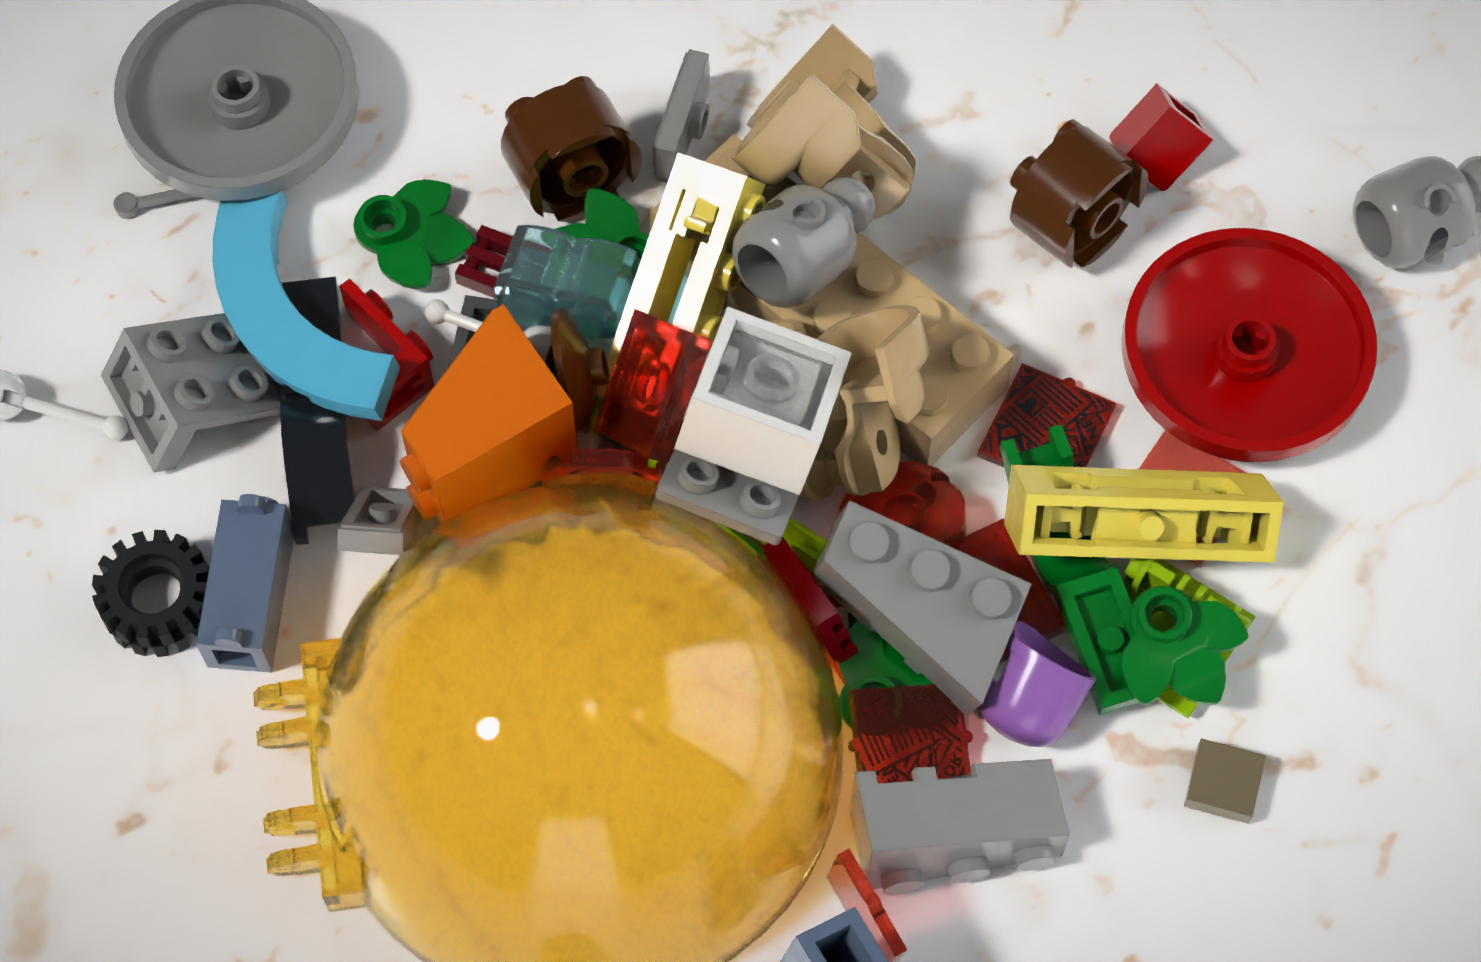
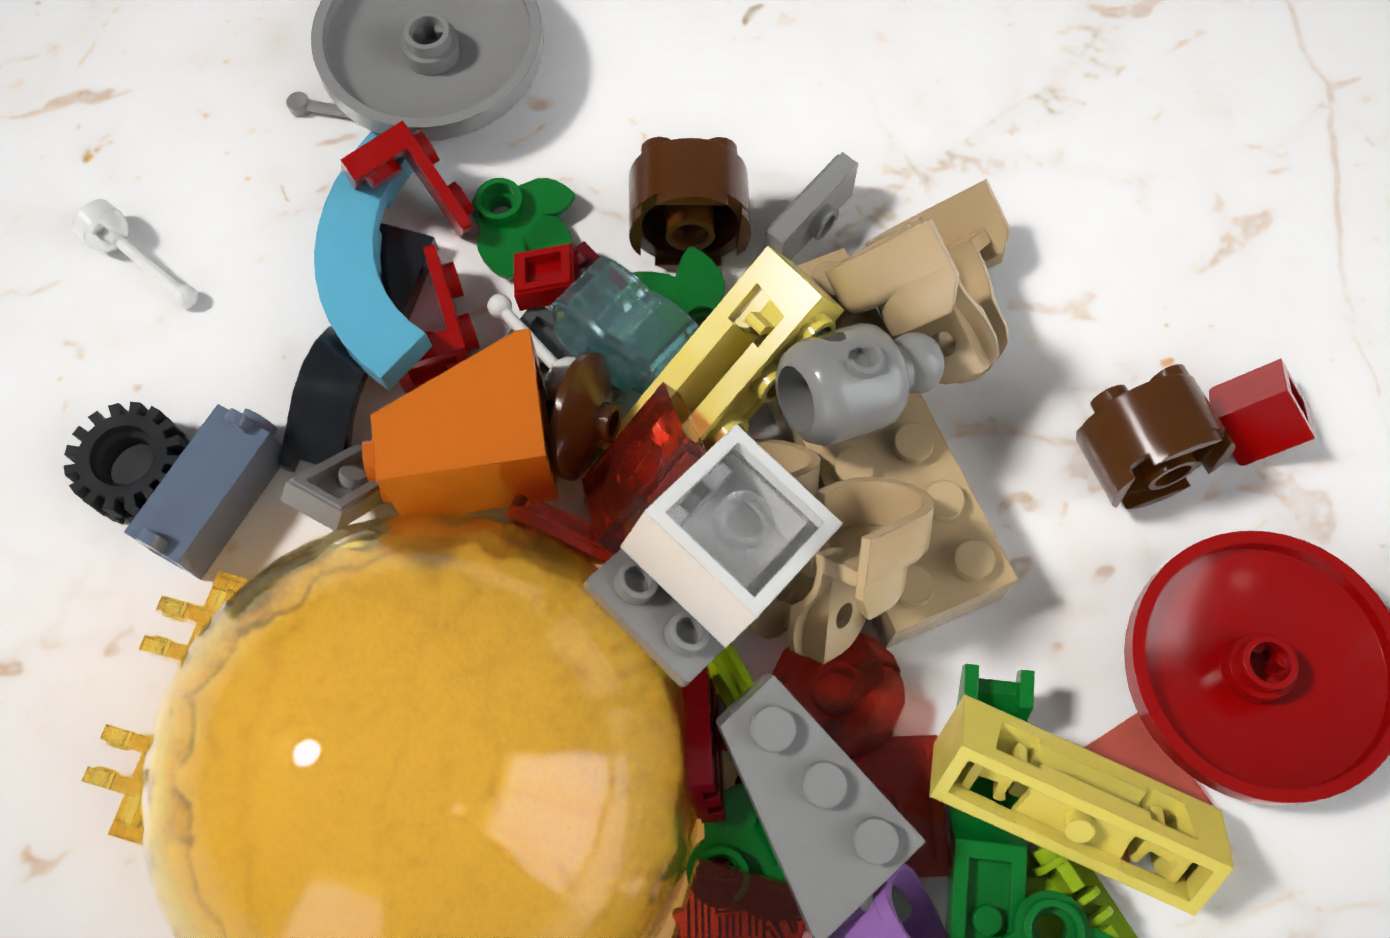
camera: 25 degrees right, 5 degrees up
(185, 380) = (255, 280): light grey bracket -> none
(295, 207) = (378, 164): none -> red bracket
(465, 268) = (543, 275): none -> red tile
(1041, 402) = (1026, 636): clear red piece -> none

